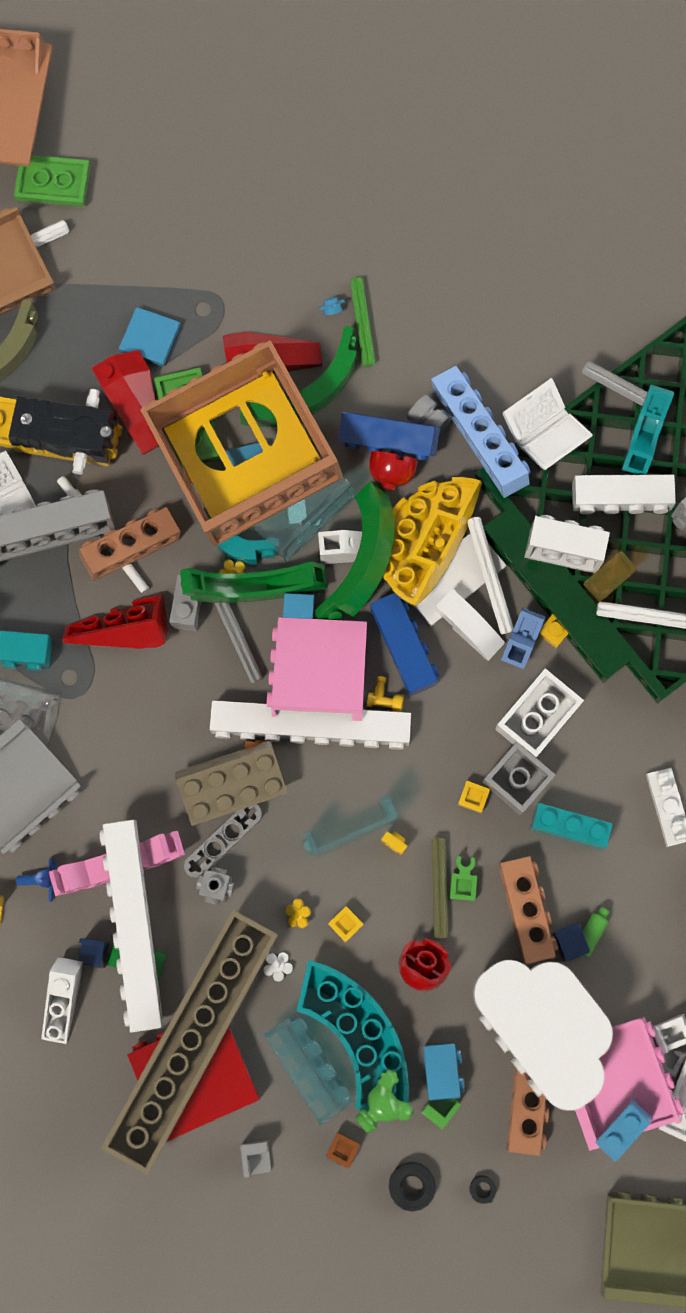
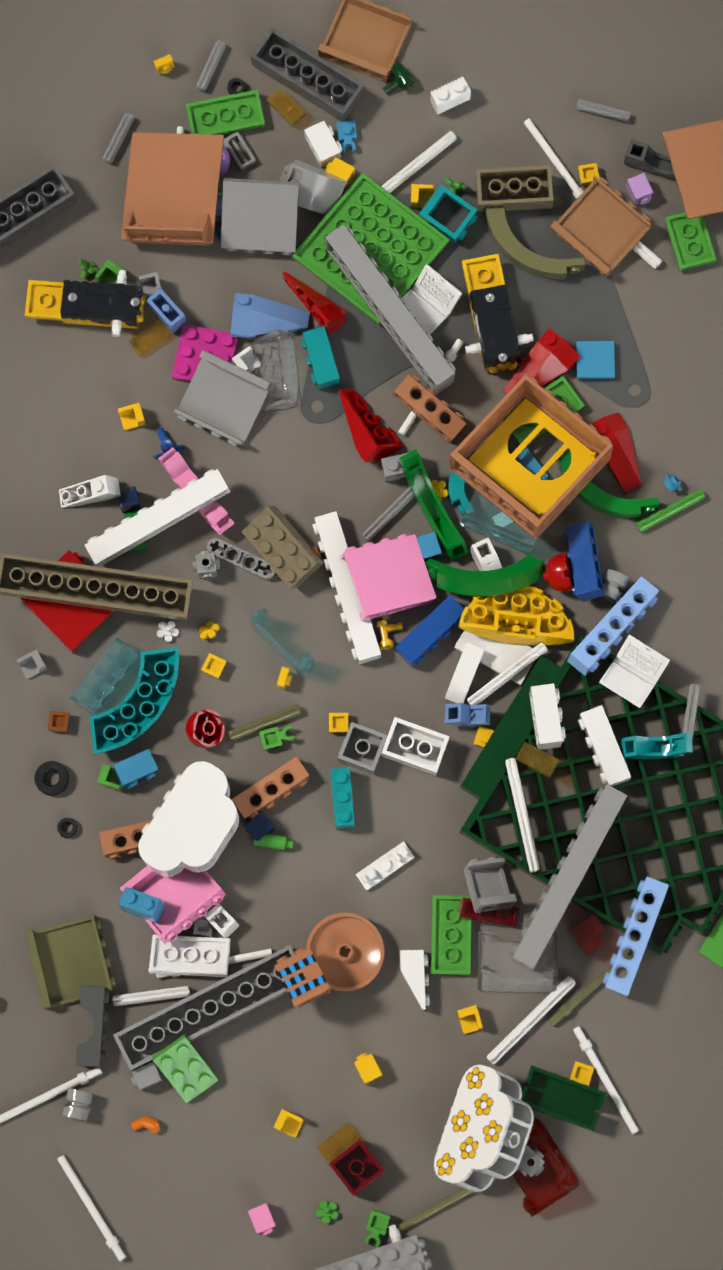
camera: 70 degrees right, 0 degrees up
(383, 1104) = (98, 733): bright green animal -> none

